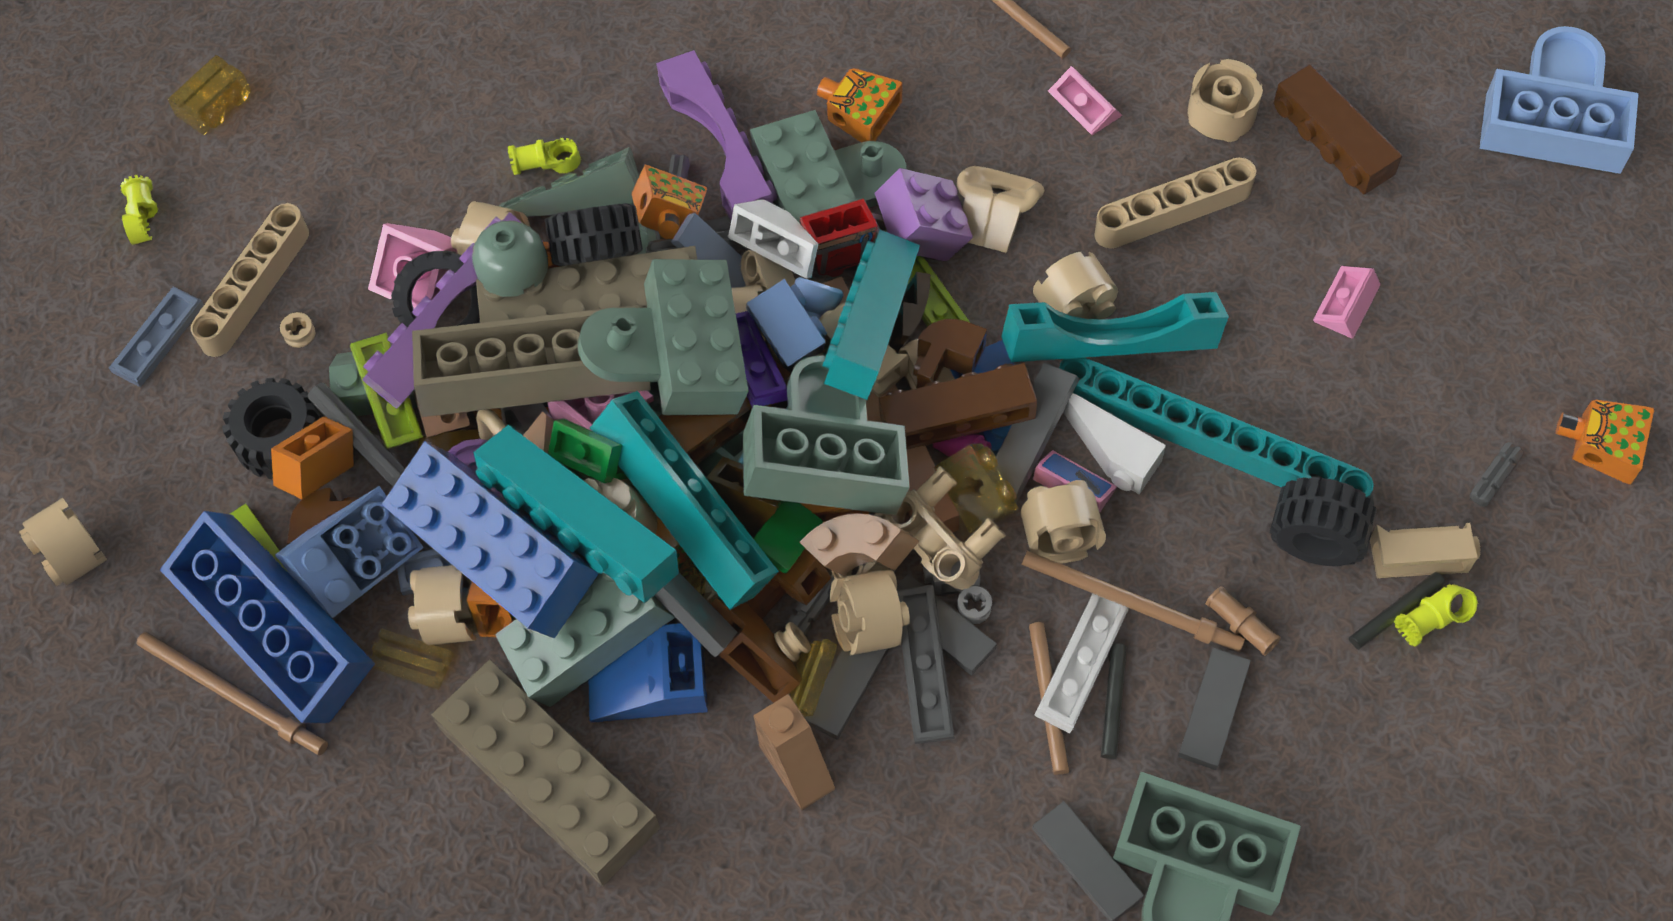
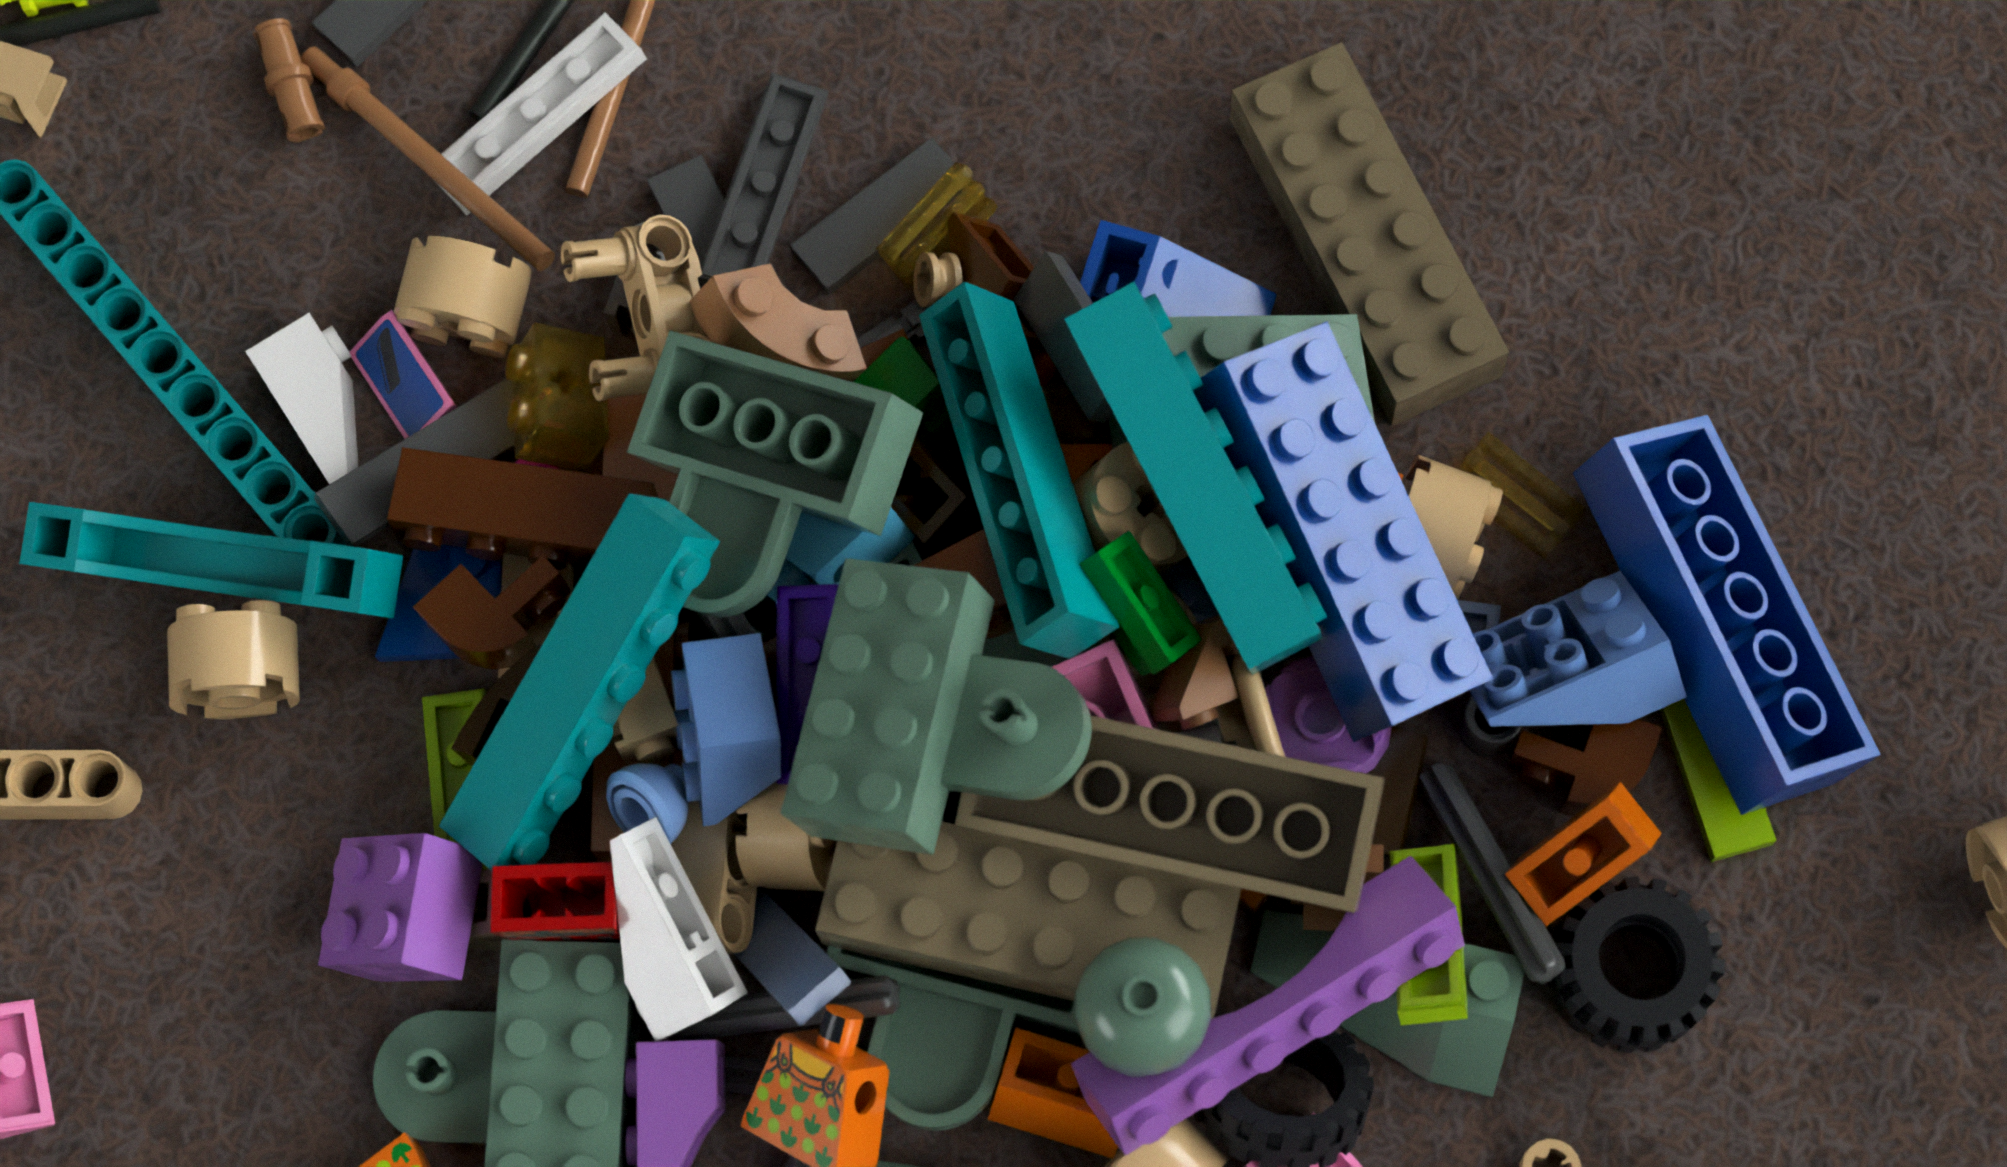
camera: 155 degrees left, 10 degrees up
(288, 727) = (1820, 561): medium nougat bar -> none
(593, 234) = (980, 1015): black tyre -> none
(793, 751) = (1008, 124): medium nougat slope -> none
(868, 612) = (815, 249): tan brick -> none
(991, 215) = (294, 882): tan piece -> none
(1323, 521) = (96, 136): black tyre -> none

